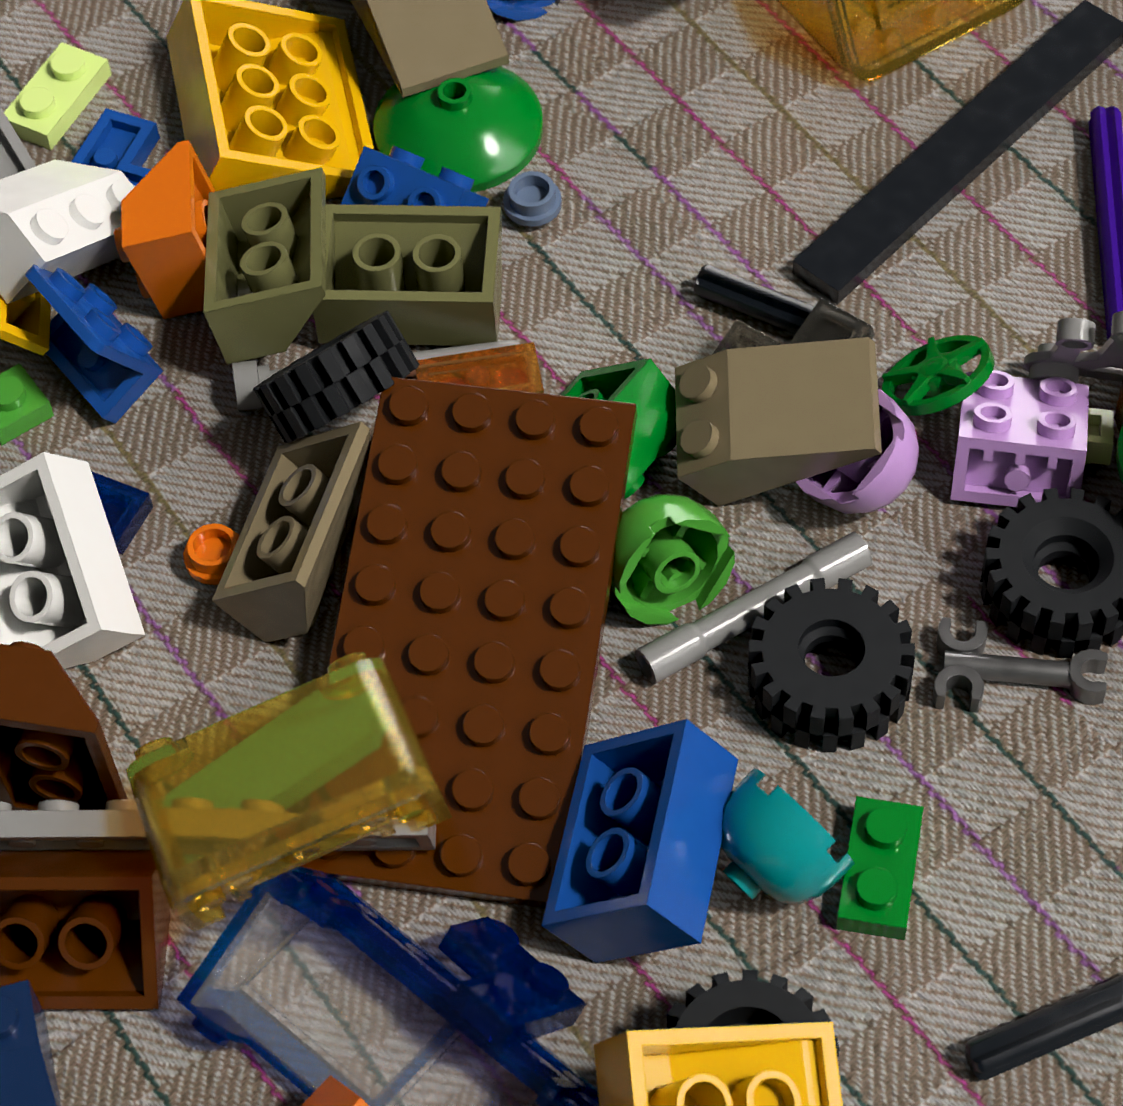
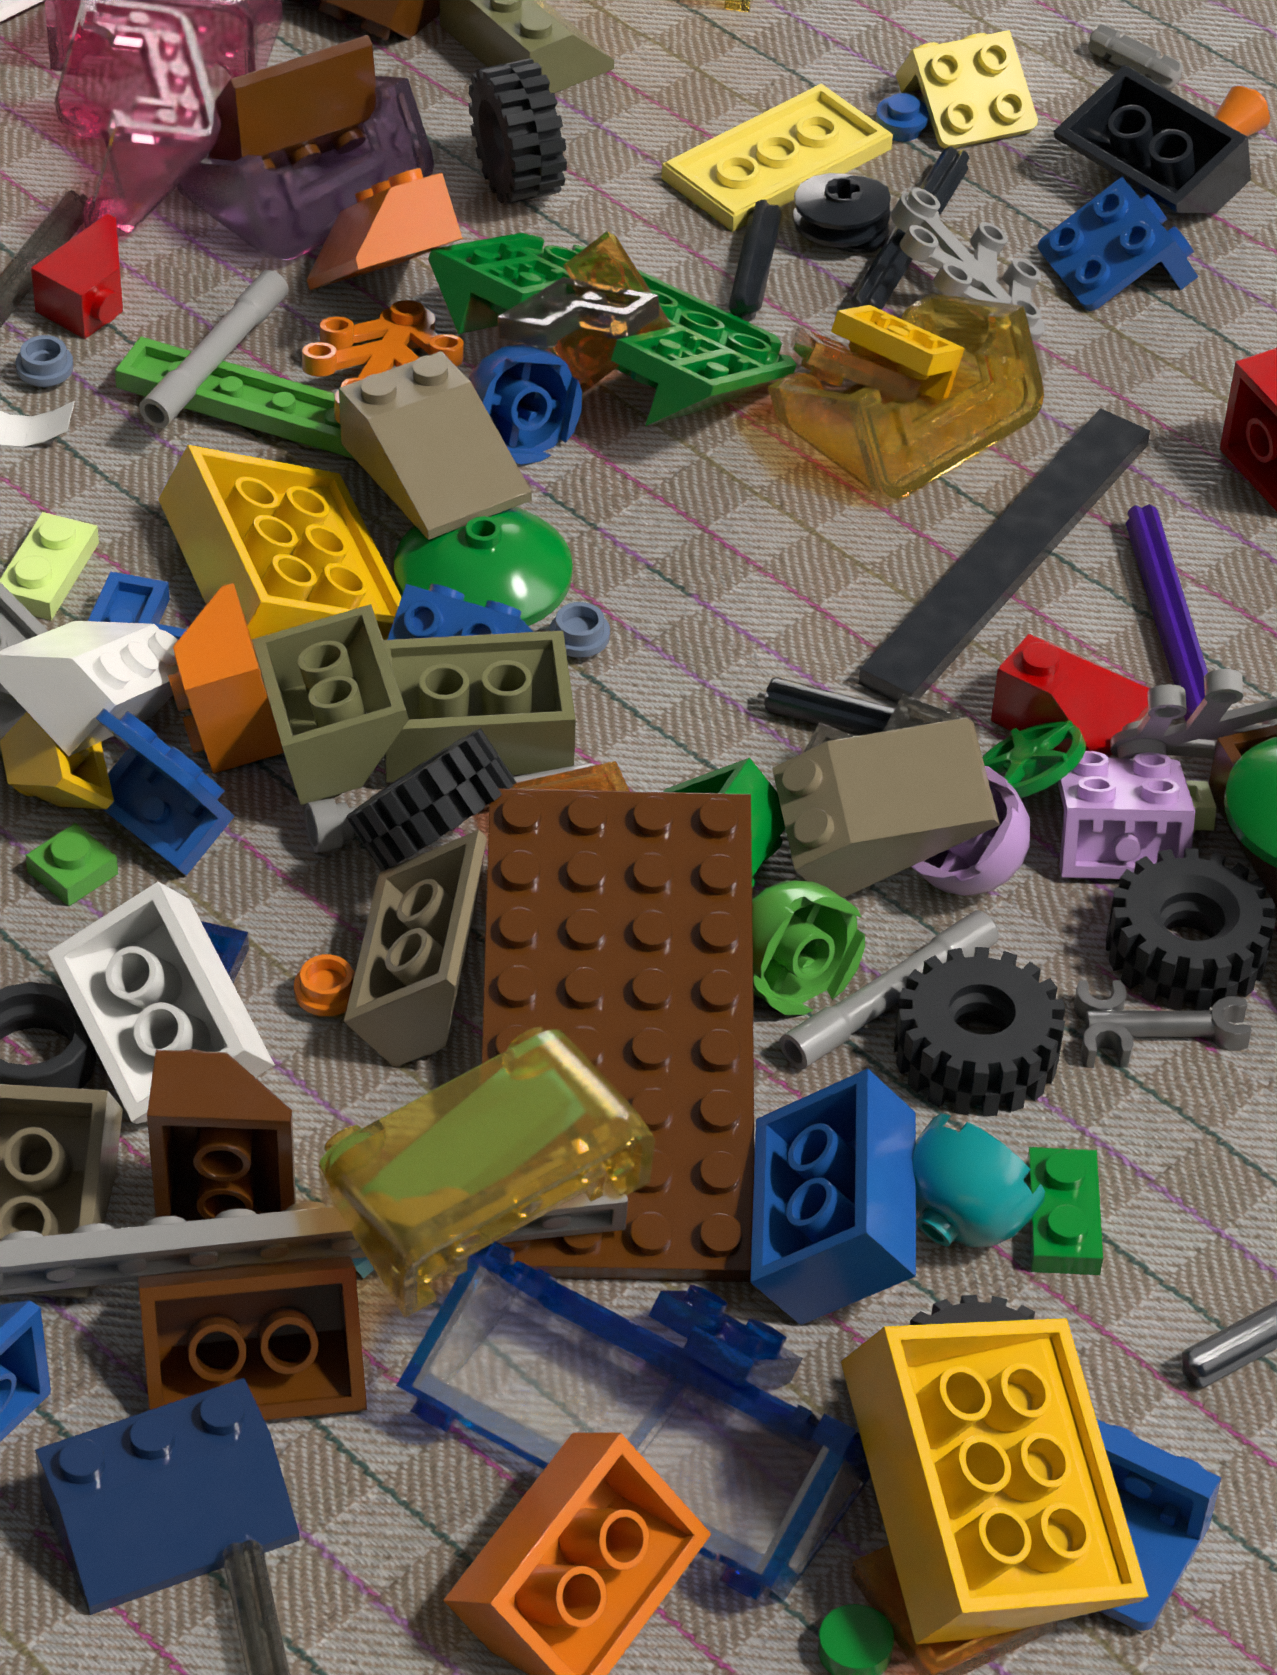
camera: 15 degrees left, 10 degrees down
(993, 298) = (1056, 685): none -> red slope

